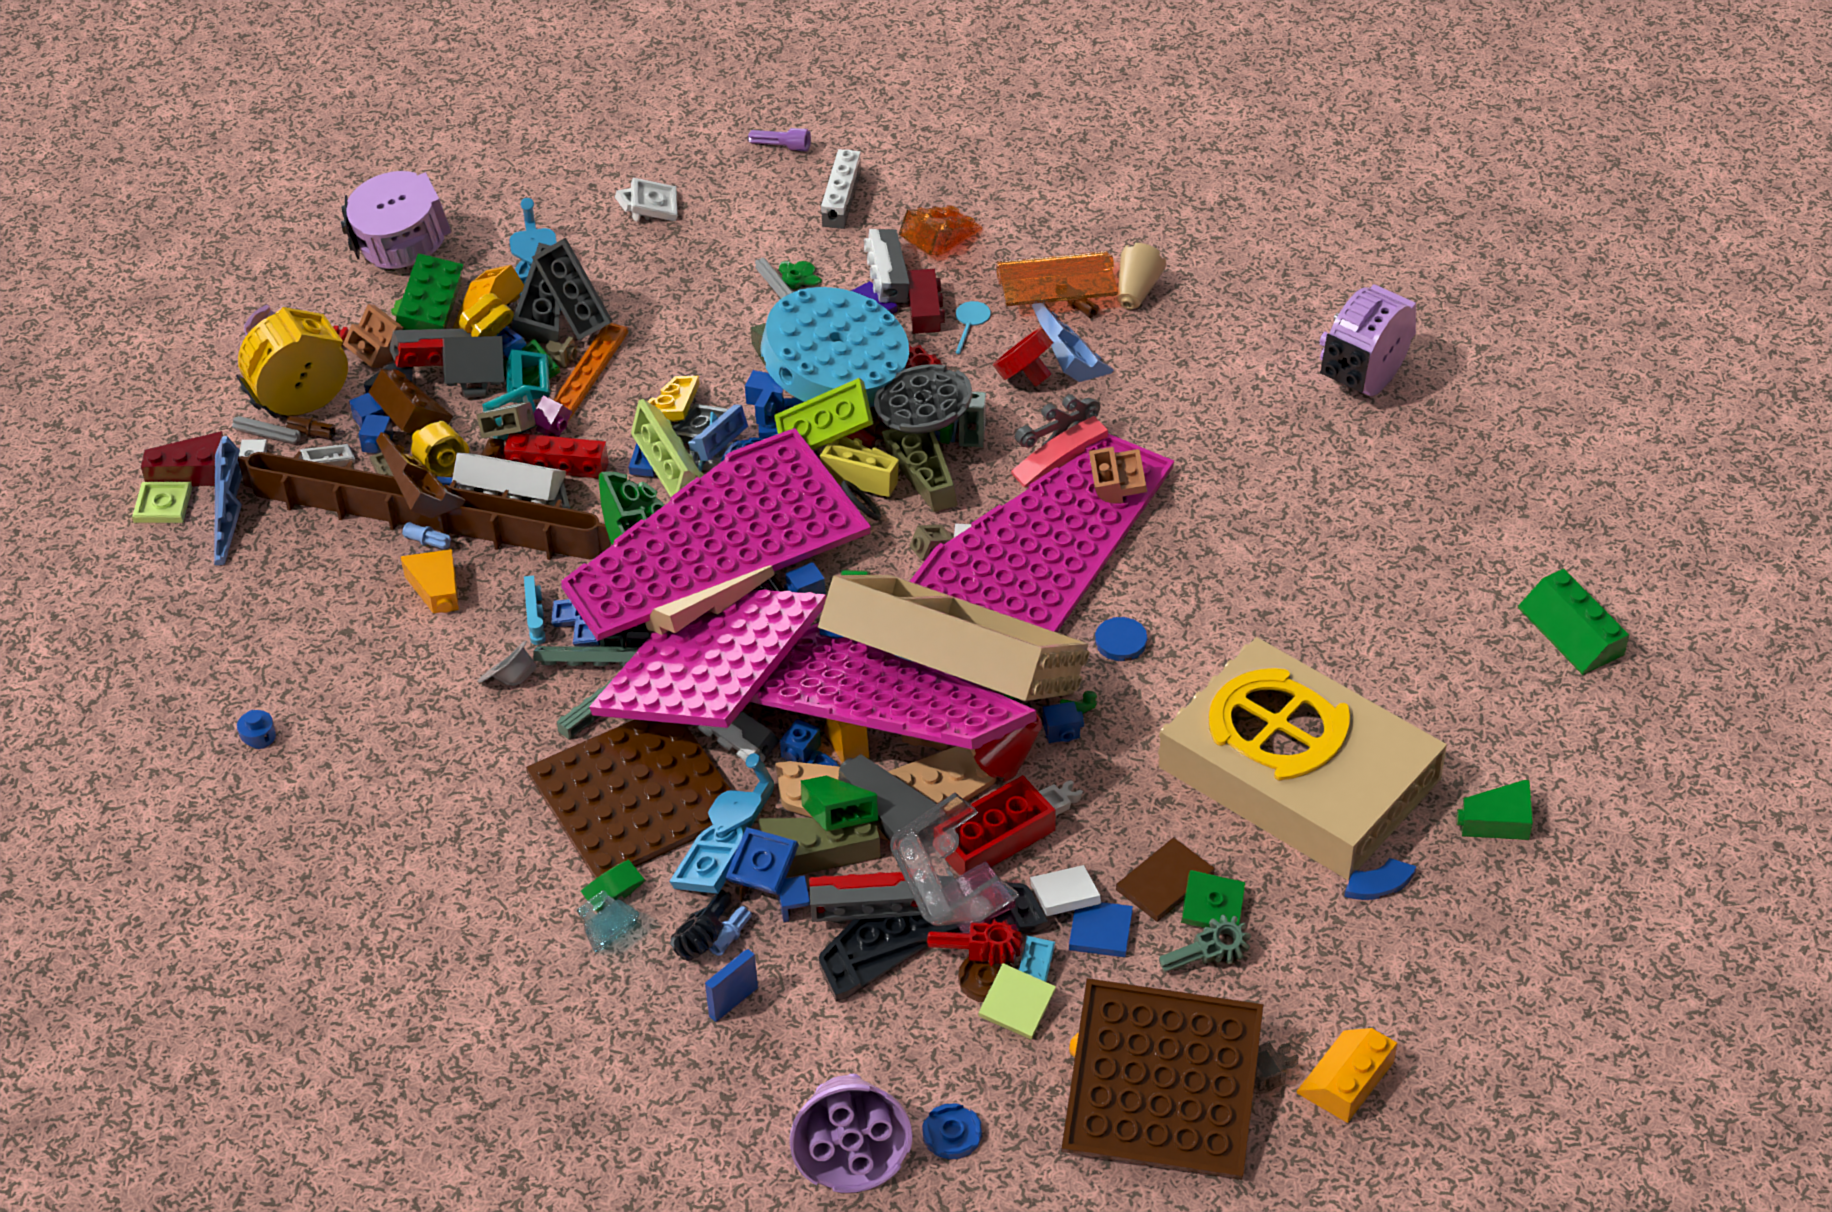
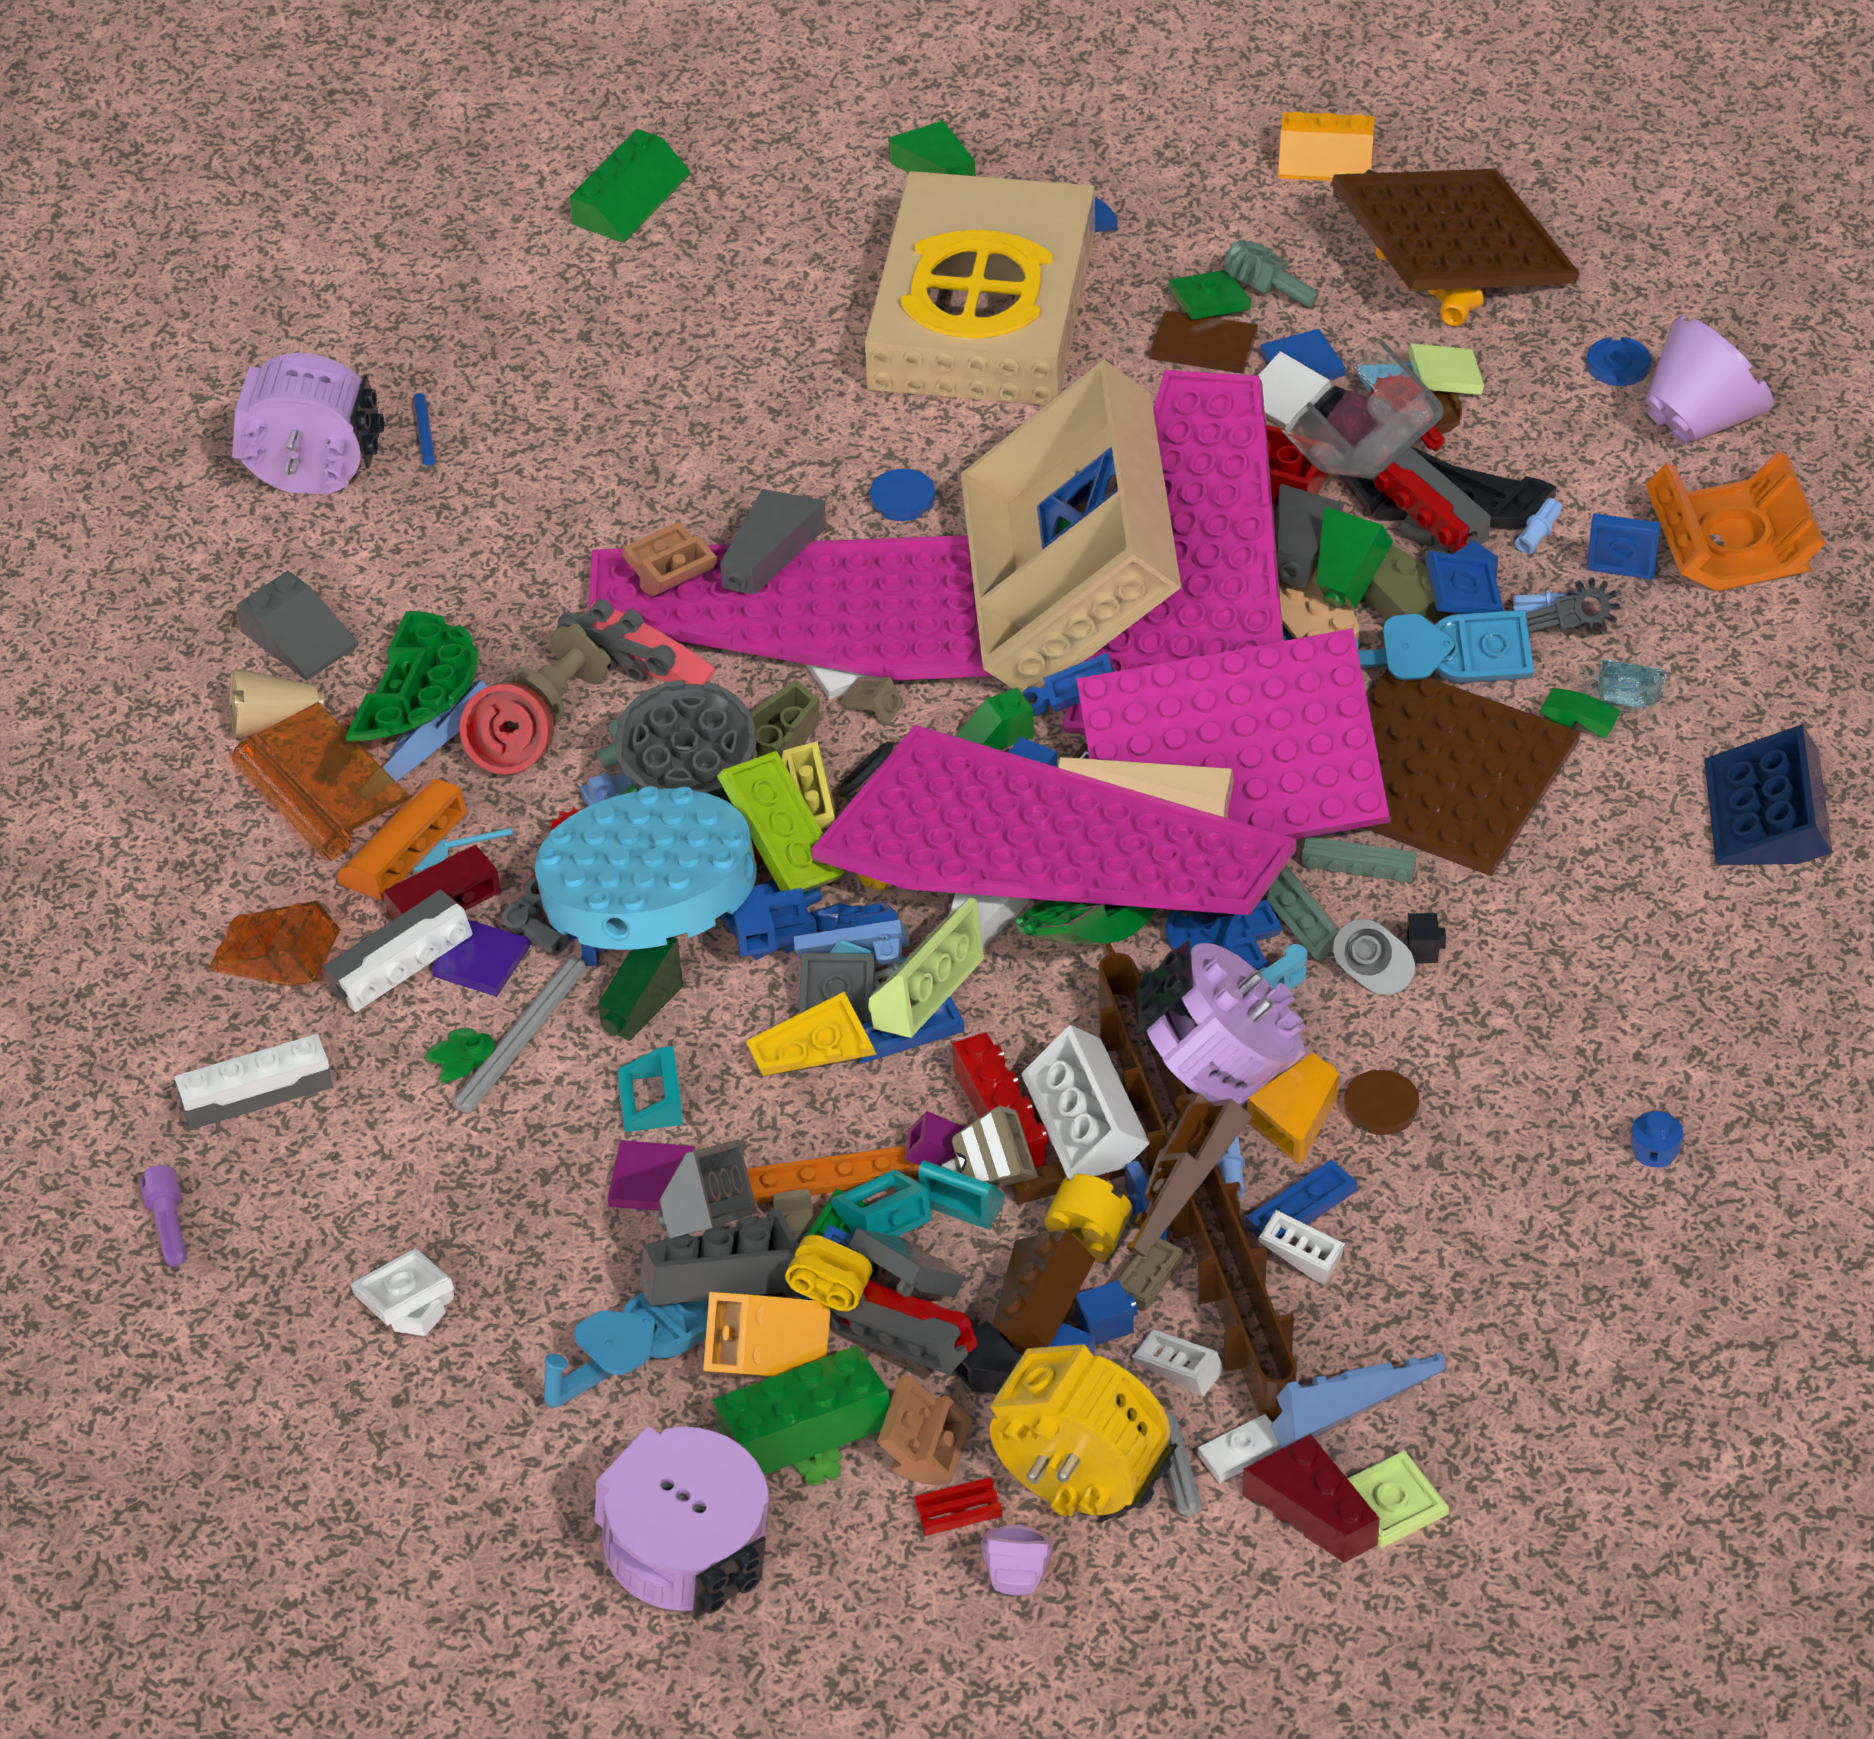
camera: 120 degrees left, 0 degrees up
(332, 538) = (1295, 1255): none -> white slope
(370, 552) = (1306, 1198): none -> blue plate
(407, 625) = (1381, 1102): none -> reddish brown tile
(443, 942) = (1768, 801): none -> dark blue slope
(492, 532) = (1219, 1022): none -> lavender piece
(500, 699) = (1425, 937): none -> black plate
(645, 314) = (643, 1173): none -> magenta tile
(699, 334) = (661, 1114): none -> teal tile
(701, 1044) = (1761, 520): none -> orange panel
(808, 967) = (1538, 526): none -> light blue axle
(979, 300) = (404, 839): none -> orange brick
(1048, 382) = (576, 656): none -> dark tan piece
(1097, 337) = (425, 676): none -> green brick
(1106, 532) = (770, 538): none -> dark grey slope
(1206, 313) = (294, 626): none -> dark grey slope
(1368, 435) = (424, 429): none -> blue bar

